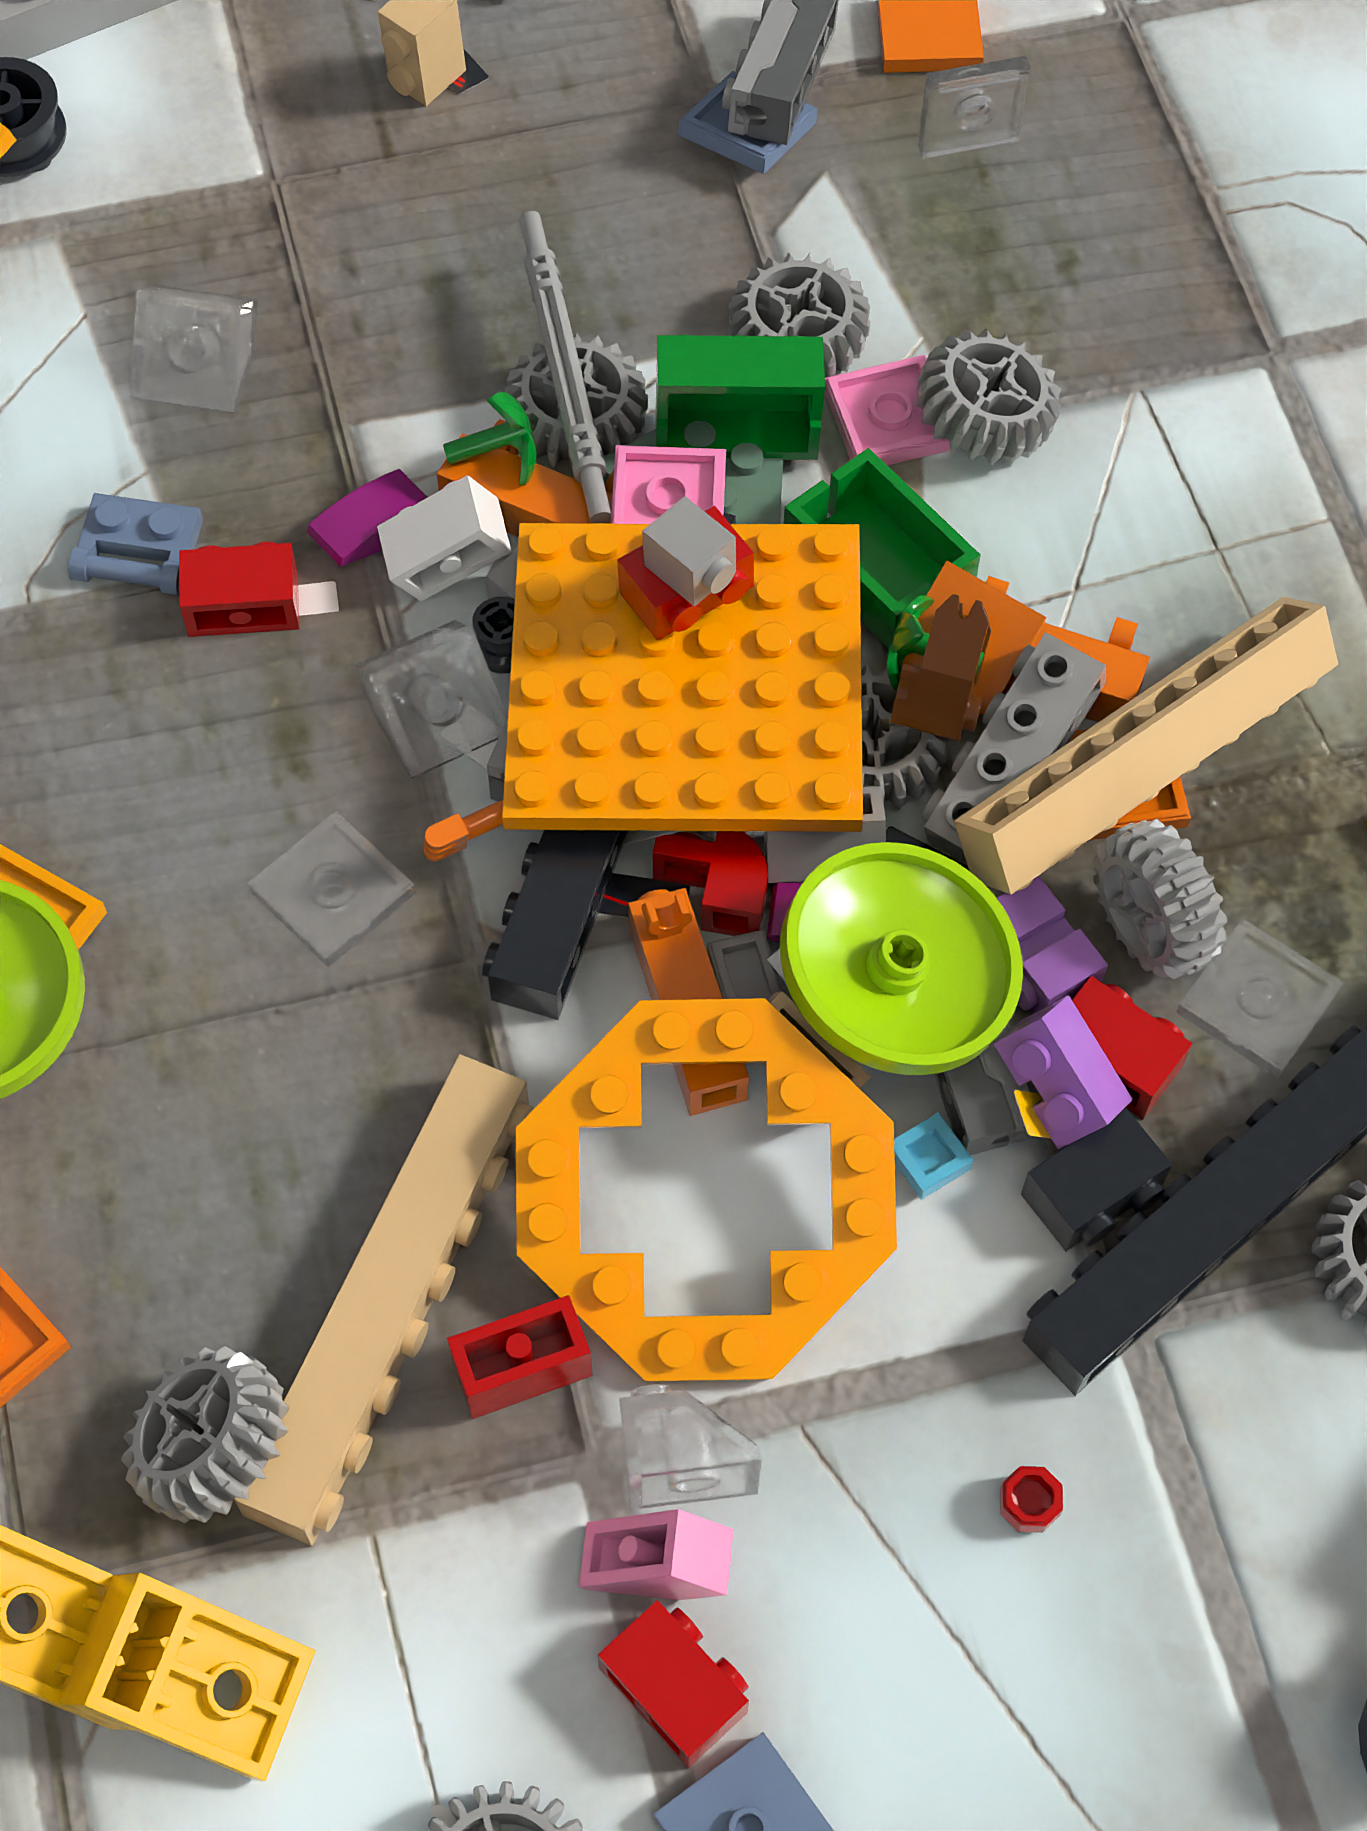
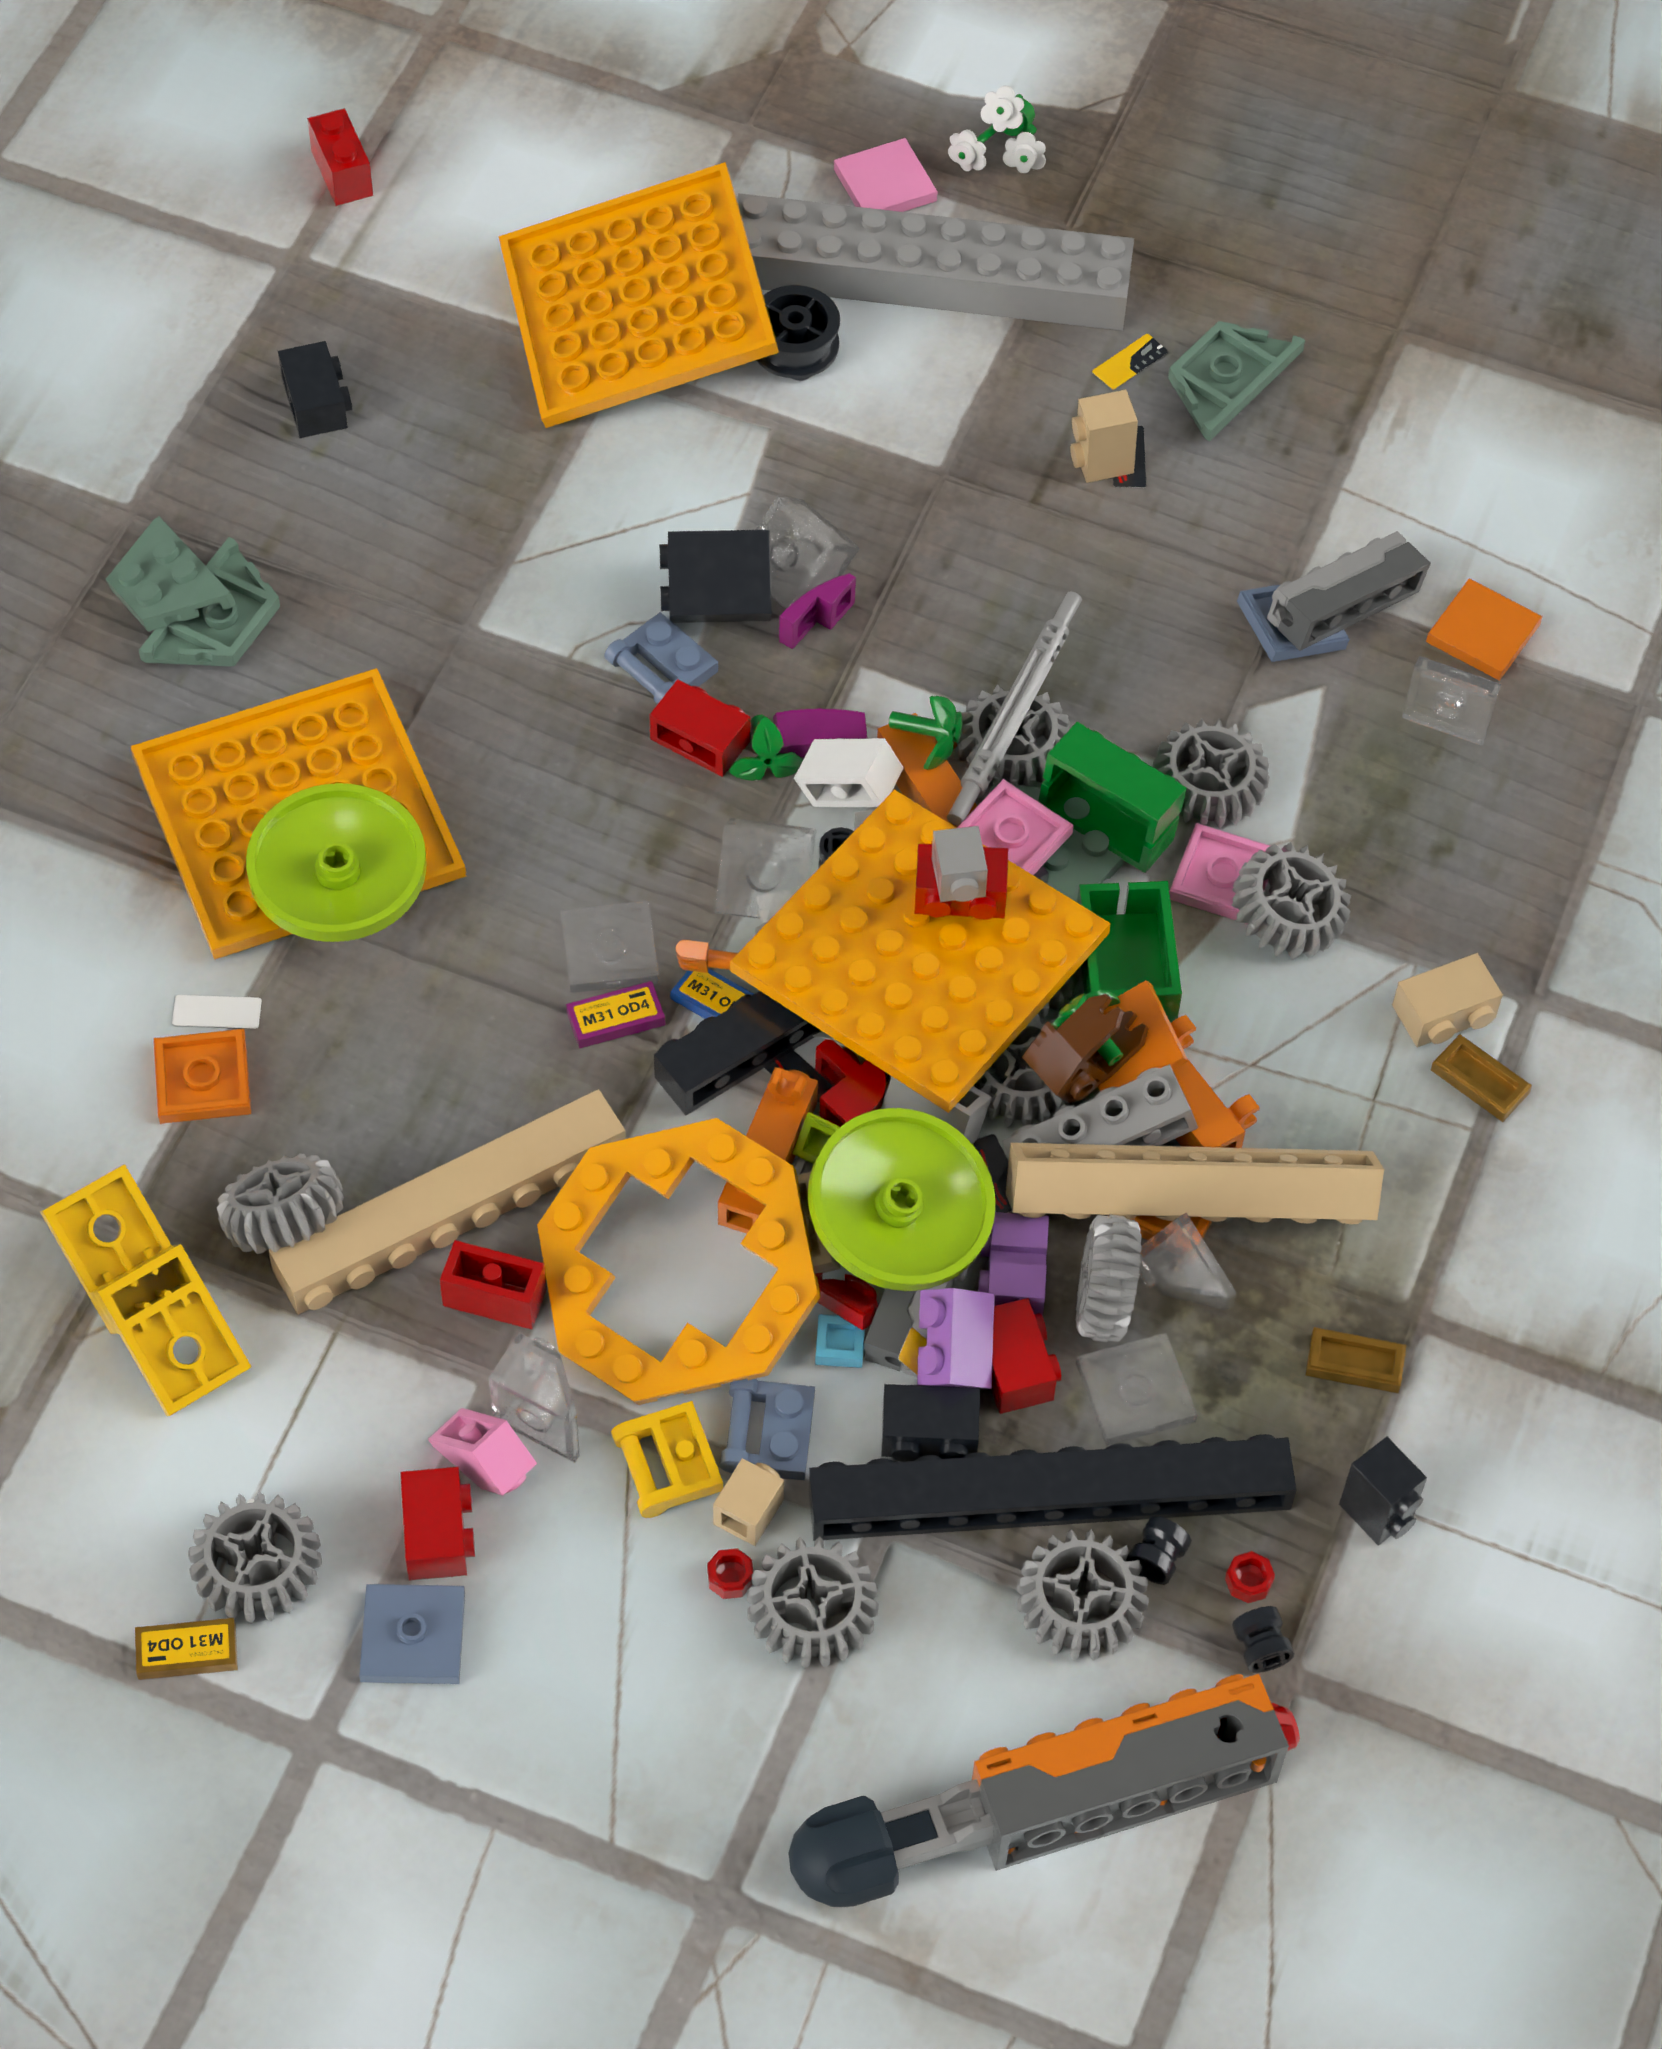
camera: 35 degrees right, 5 degrees down
(132, 415) = (717, 576): none -> black brick
(262, 387) = (821, 604): none -> magenta slope
(330, 560) = (766, 743): none -> green plant
(396, 959) = (615, 1014): none -> tile
(482, 871) = (706, 993): none -> tile
(740, 952) = (813, 1137): none -> lime slope
(871, 1400) = (682, 1452): none -> yellow plate
(912, 1102) = (849, 1299): none -> red tile
(950, 1297) = (784, 1428): none -> sand blue plate
(987, 1402) = (749, 1501): none -> tan brick
(1162, 1485) = (848, 1590): none -> light grey gear
(1211, 403) = (1447, 1000): none -> tan brick
(1226, 824) = (1185, 1267): none -> clear slope
(1298, 461) = (1481, 1077): none -> pearl gold tile

